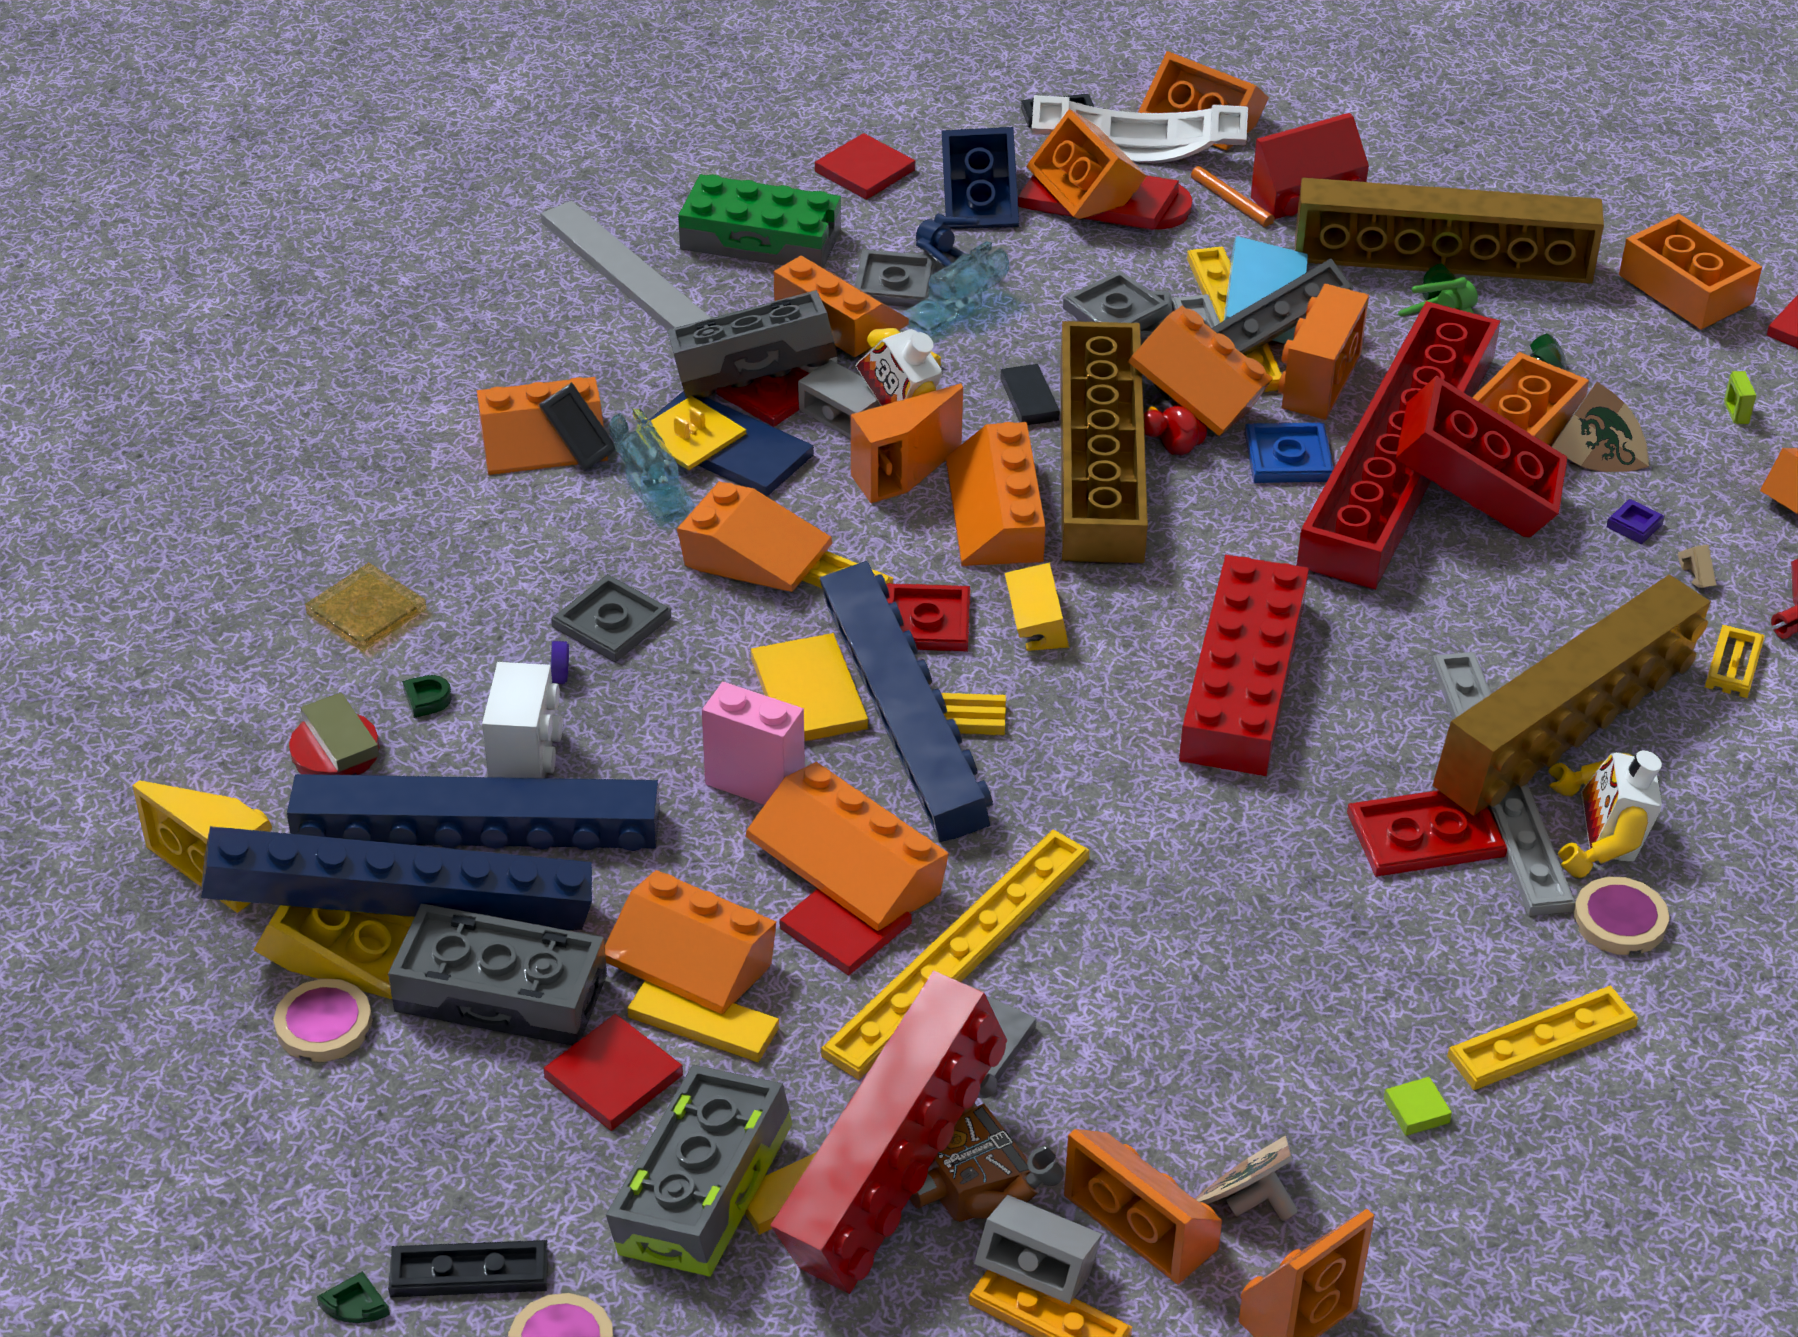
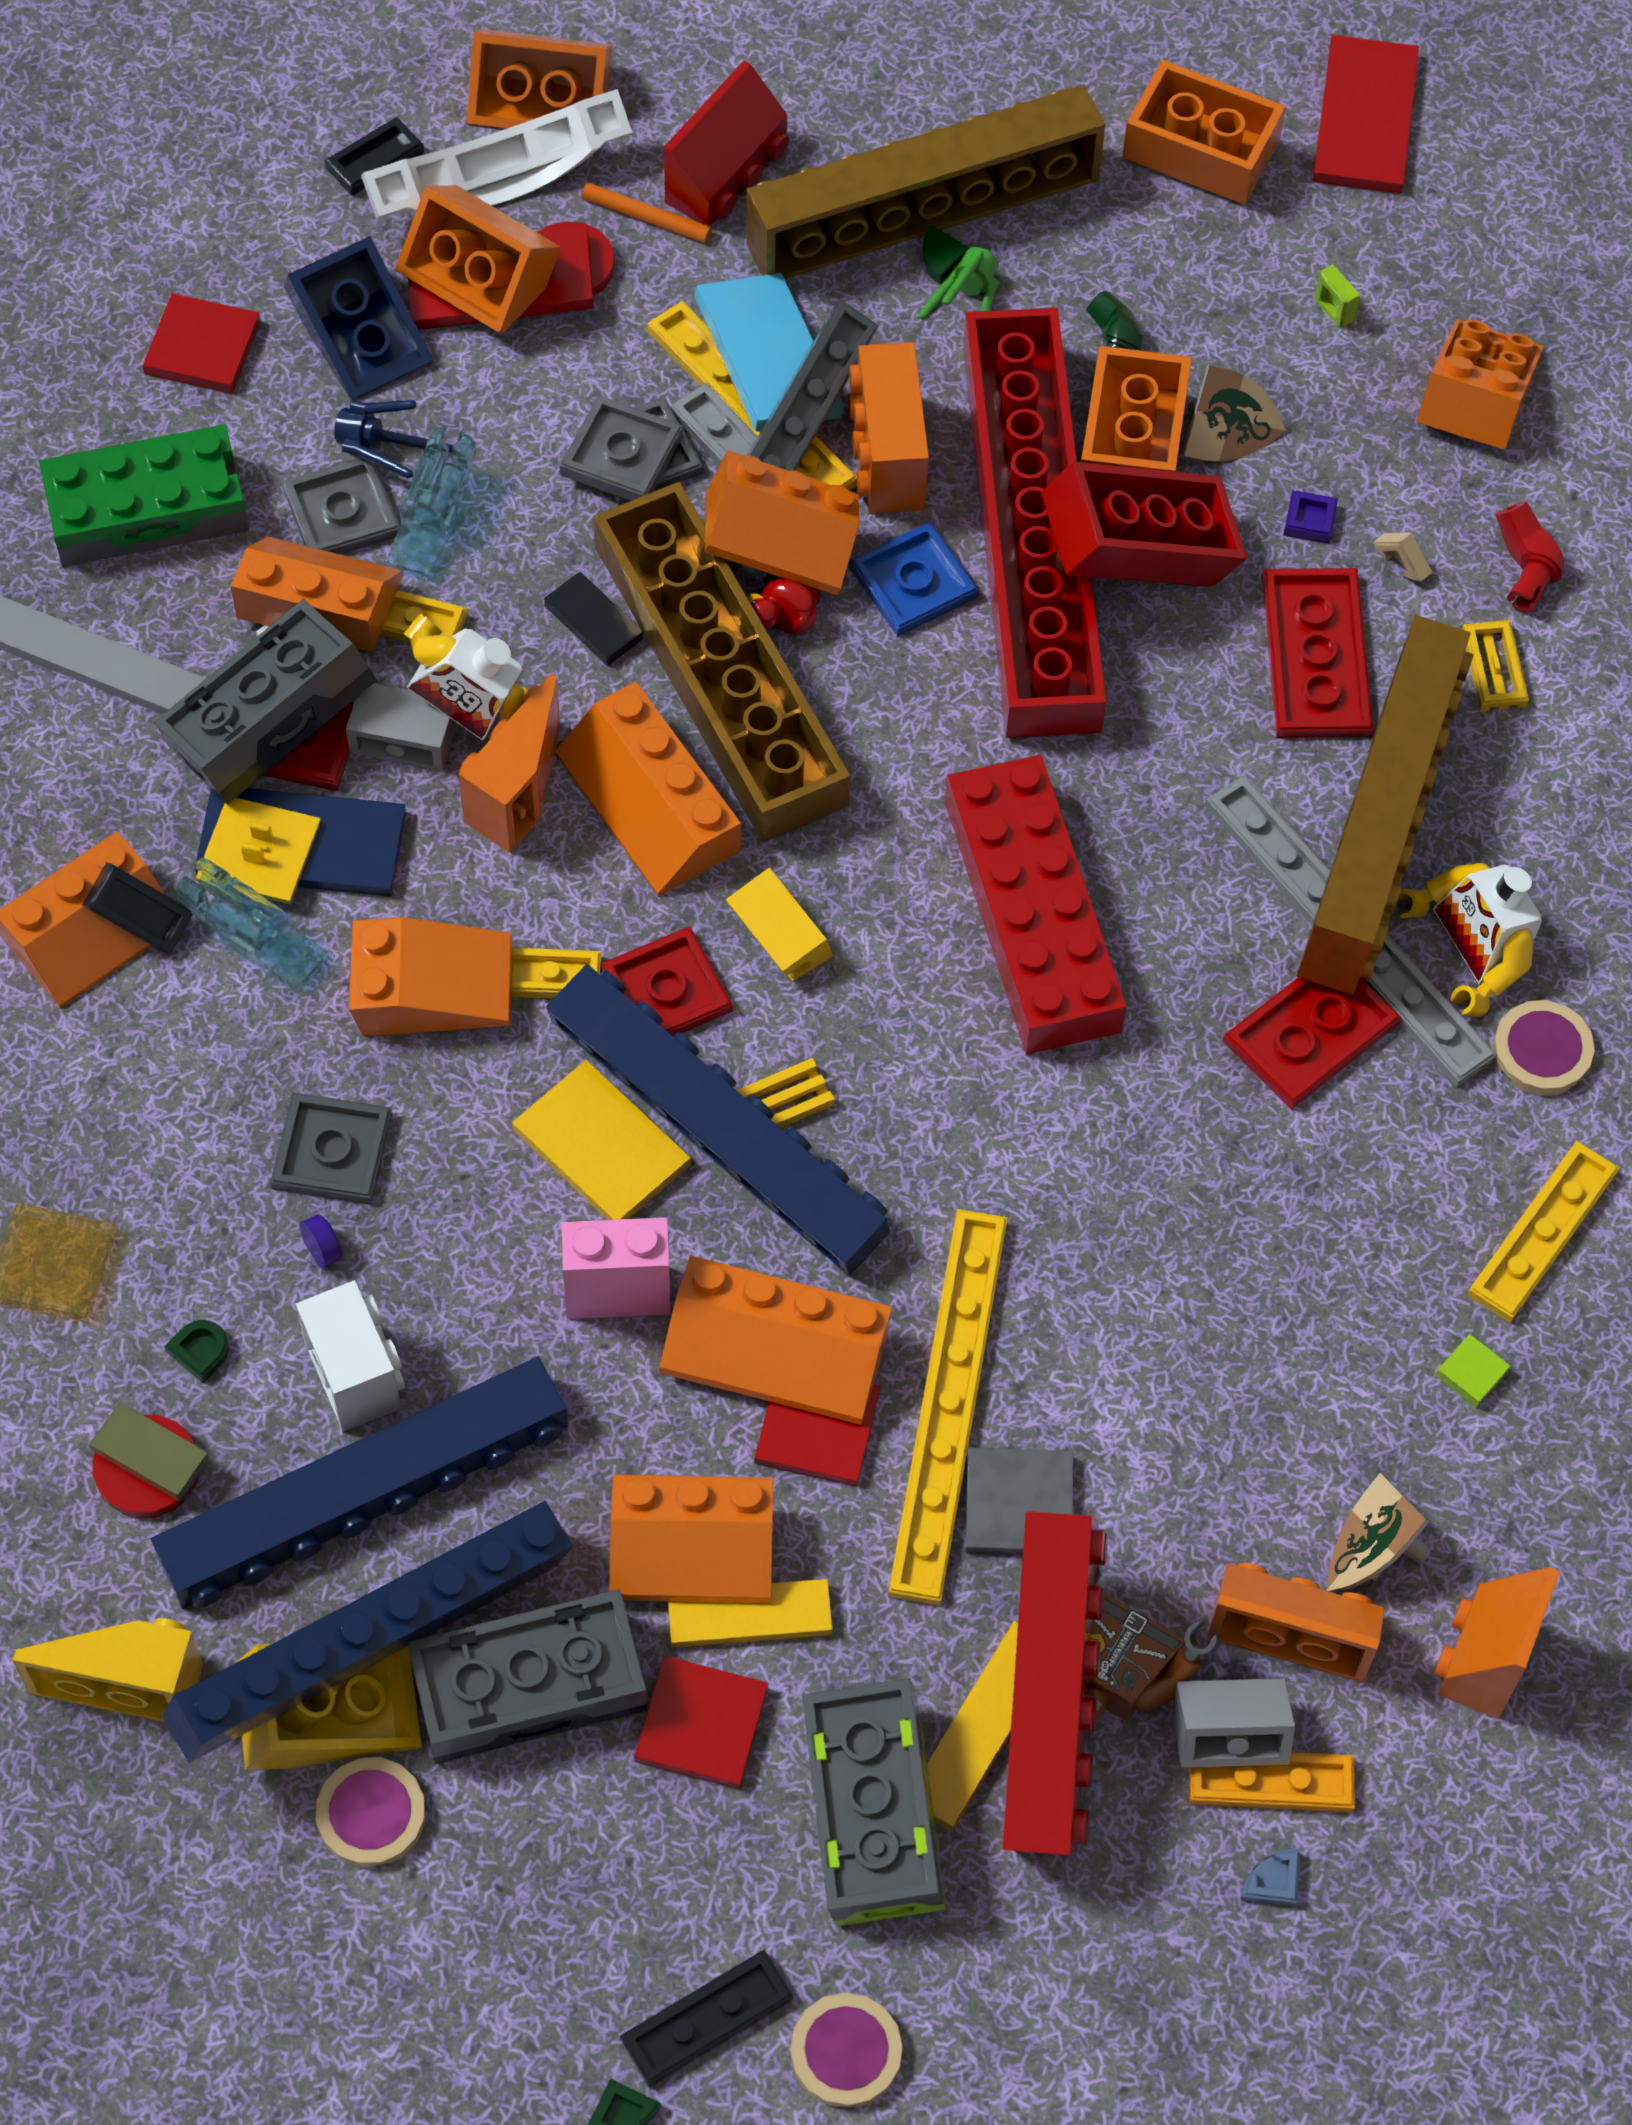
camera: 30 degrees left, 20 degrees up
(1583, 591) = (1317, 653): none -> red tile

